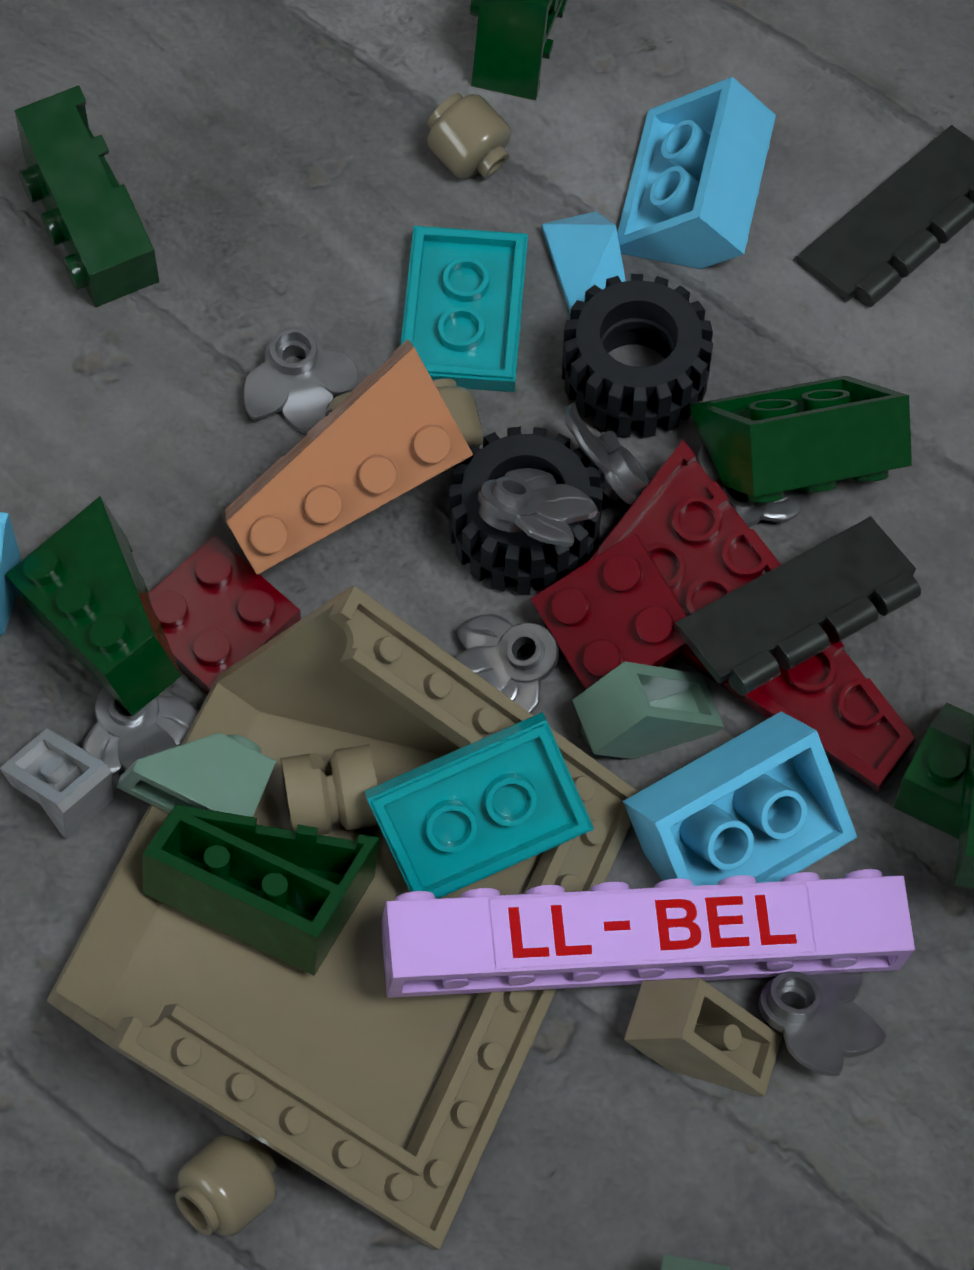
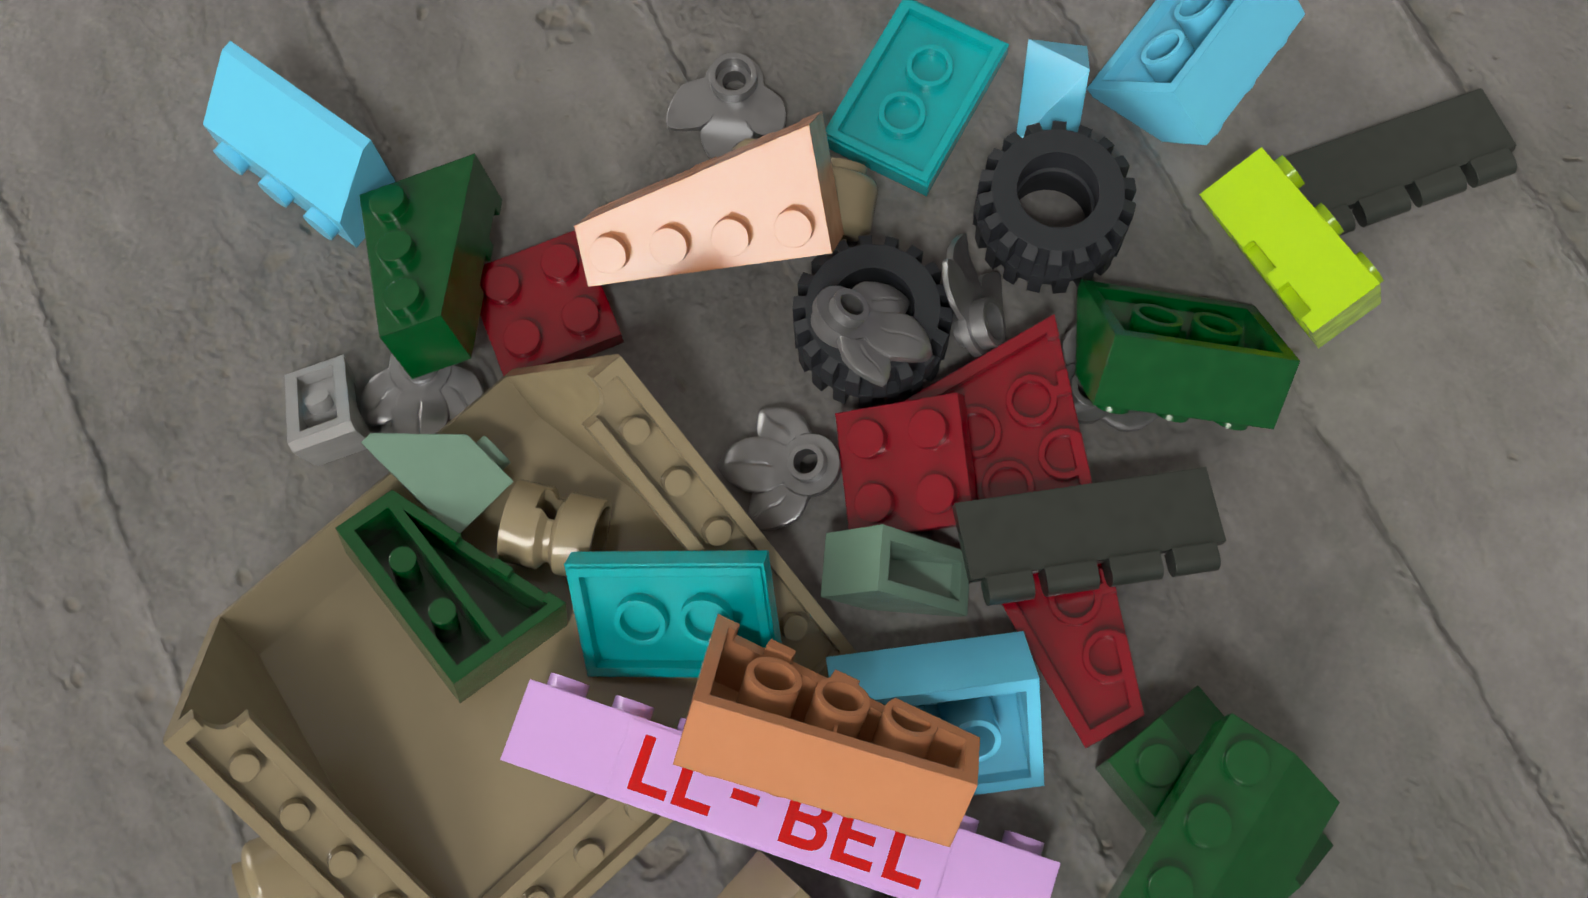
camera: 30 degrees right, 10 degrees up
(664, 844) = (825, 741): none -> nougat wedge
(857, 310) = (1294, 245): none -> lime wedge

